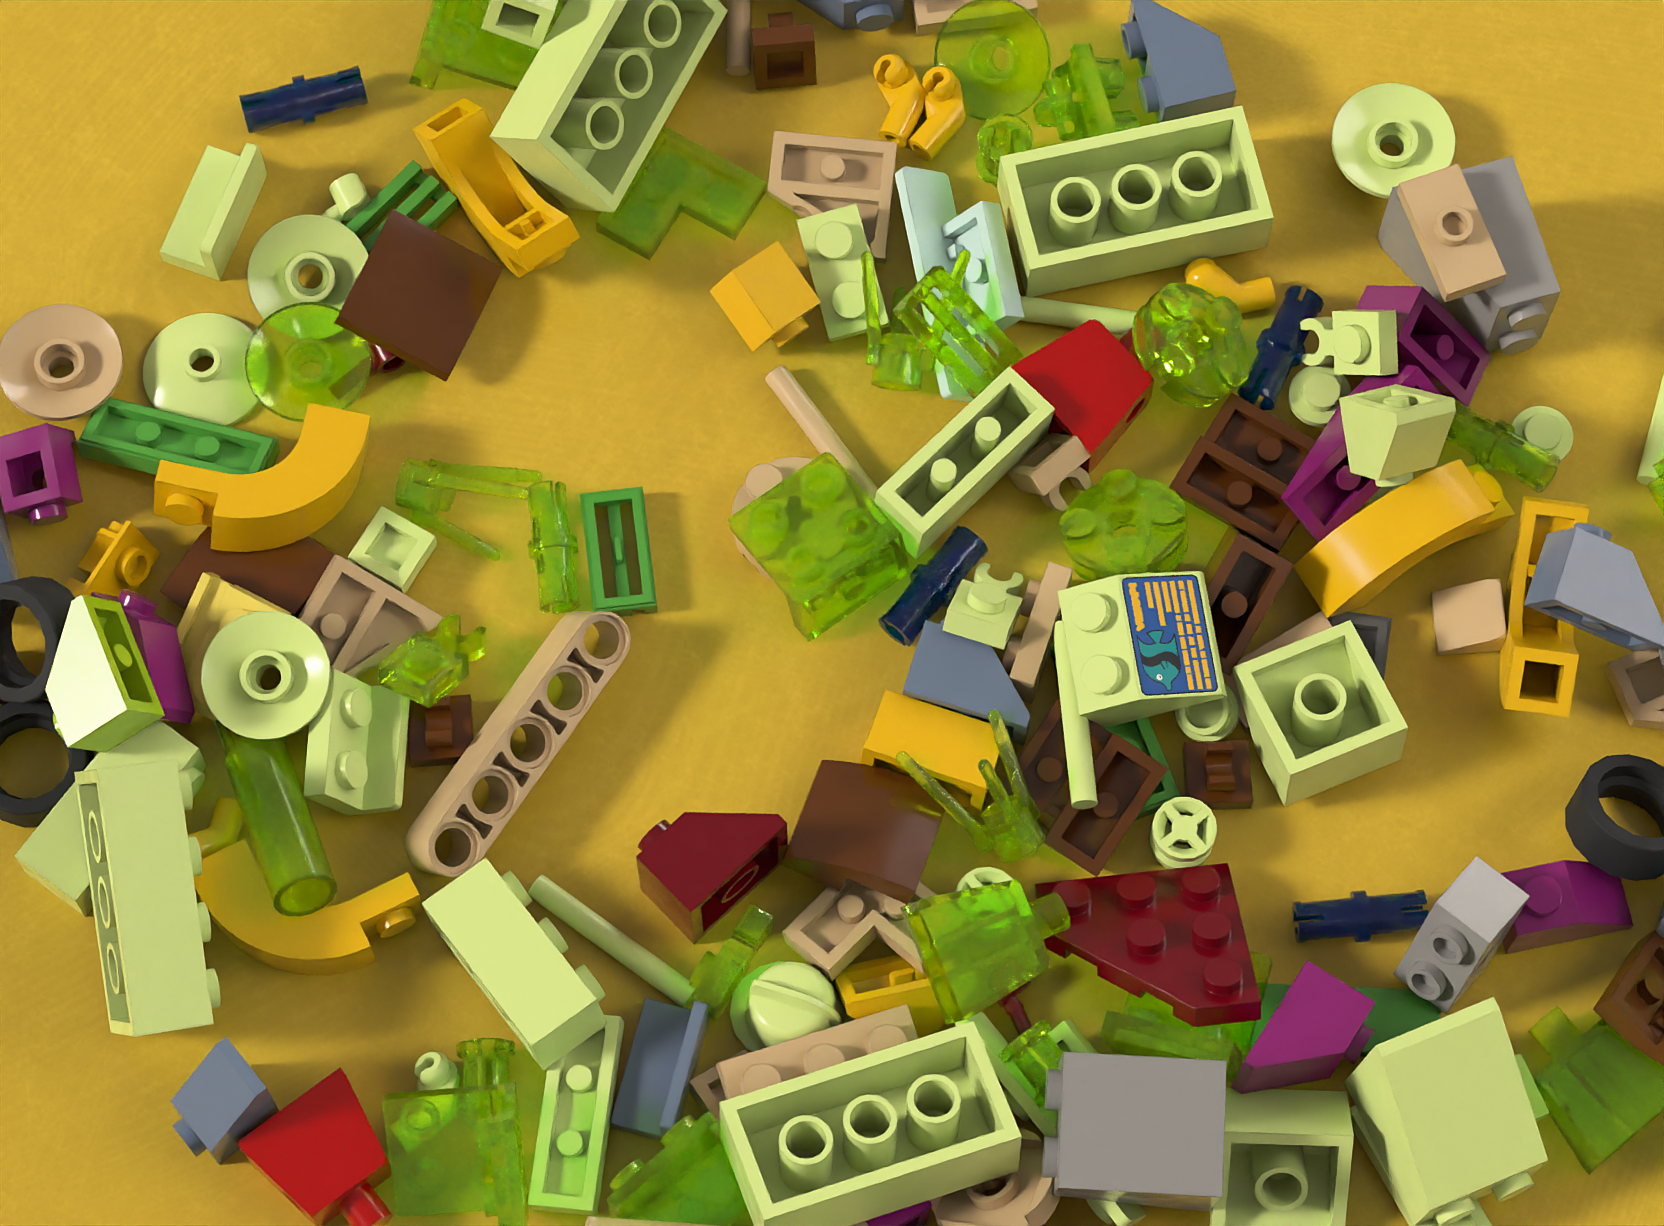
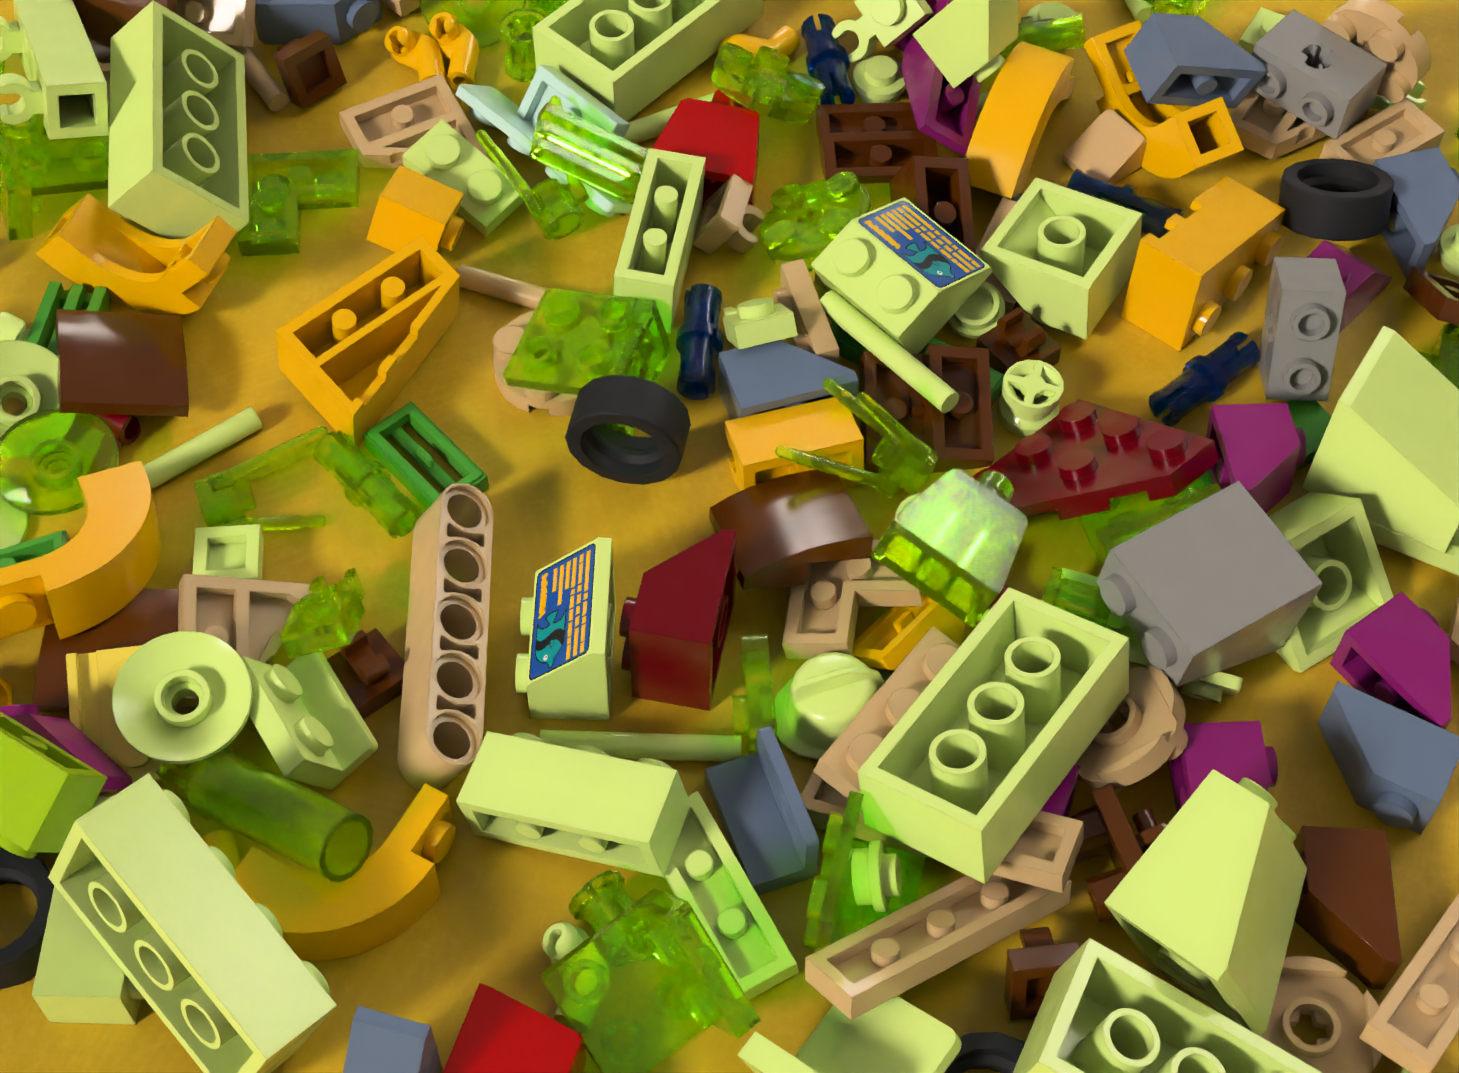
camera: 35 degrees left, 15 degrees down
(435, 418) = (202, 447): none -> yellowish green bar
(611, 813) = (570, 636): none -> slope
(643, 406) = (370, 337): none -> yellow wedge
(697, 1185) = (875, 876): none -> yellowish green plate
(794, 646) = (637, 405): none -> black tyre
(1437, 688) = (1126, 196): none -> pin
(1454, 800) = (1201, 262): none -> yellow wedge

